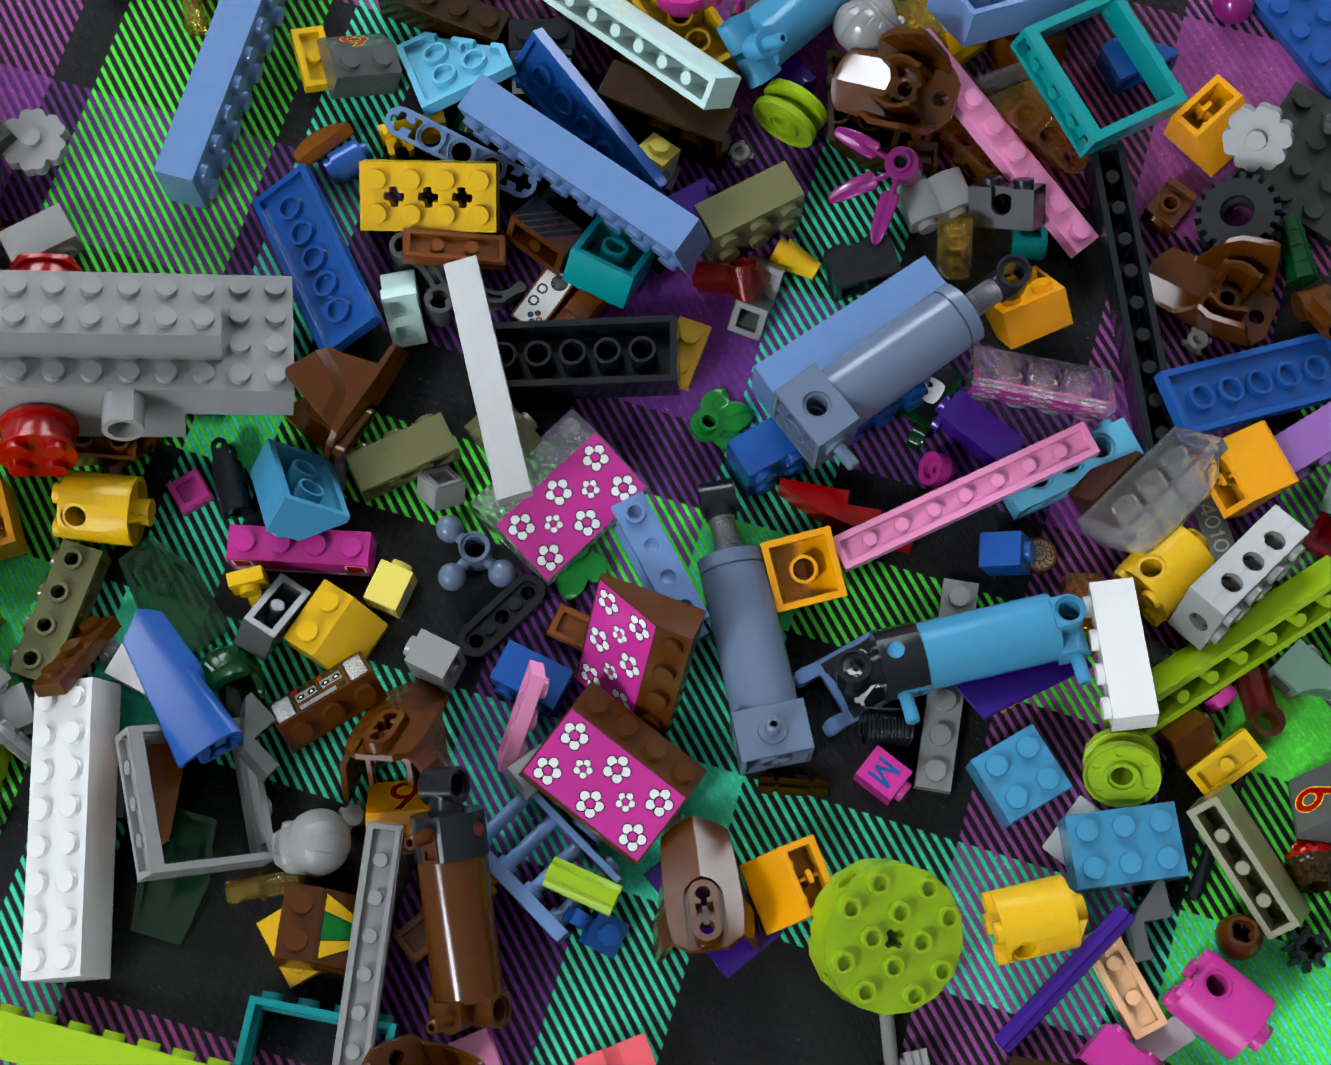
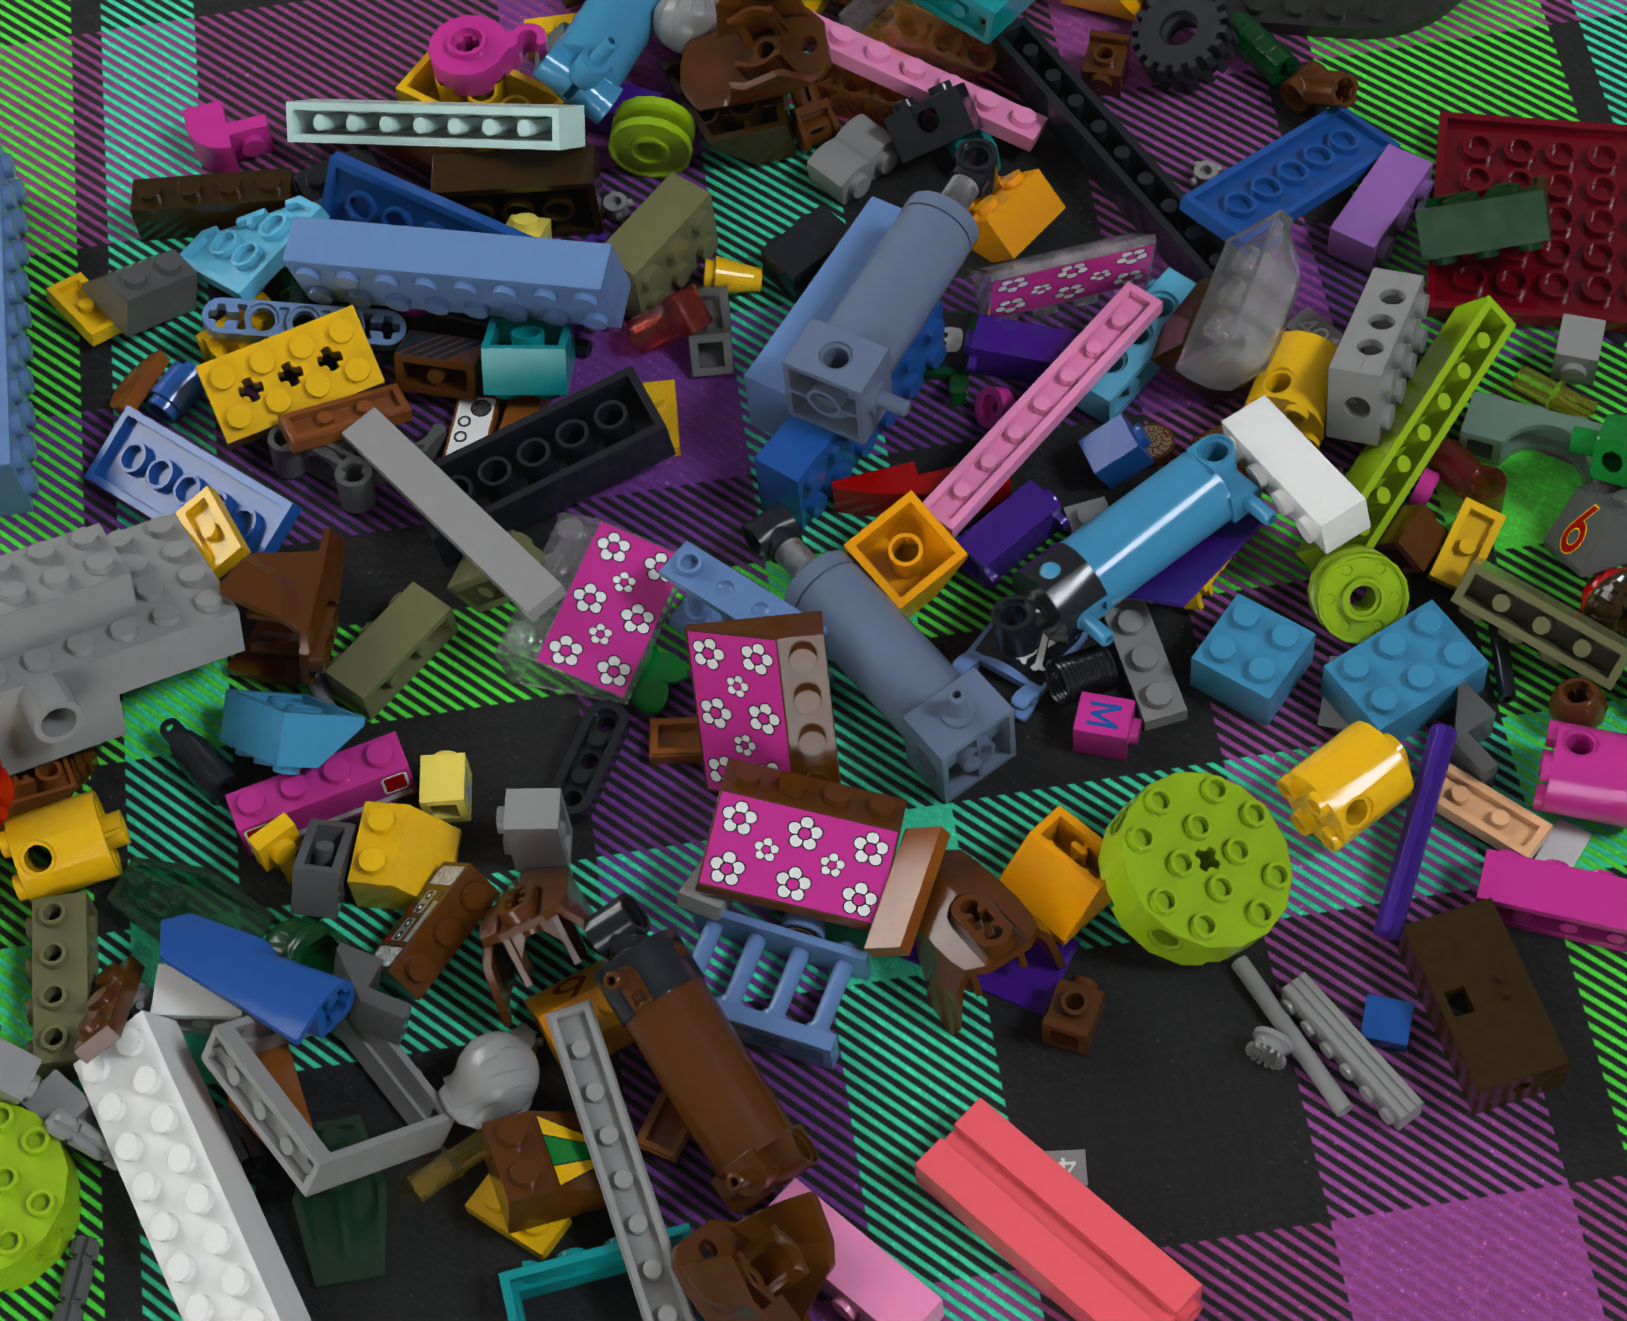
camera: 20 degrees left, 15 degrees down
(190, 492) = (158, 797): dark pink tile -> none
(311, 308) = (213, 531): none -> yellow plate
(403, 308) = (316, 492): light aqua tile -> none
(441, 488) = (451, 665): light grey slope -> none
(453, 575) = (512, 742): sand blue piece -> none
(511, 670) = (657, 805): blue brick -> none
(523, 715) = (668, 835): bright pink plate -> none
(582, 886) = (828, 979): lime axle -> none
(599, 931) = (873, 1024): blue plate -> none
(668, 850) = (907, 892): none -> tile
(724, 416) = (729, 464): green plate -> none
(739, 1007) = (1073, 1028): none -> reddish brown brick
(793, 785) = (1010, 783): dark brown axle -> none
(869, 181) = (805, 135): magenta plant -> none
(893, 582) = (1011, 533): none -> dark purple brick
(954, 247) = (894, 177): clear yellow hips -> none
(1220, 287) = (1206, 106): reddish brown piece -> none
(1251, 471) = (1333, 260): light orange slope -> none

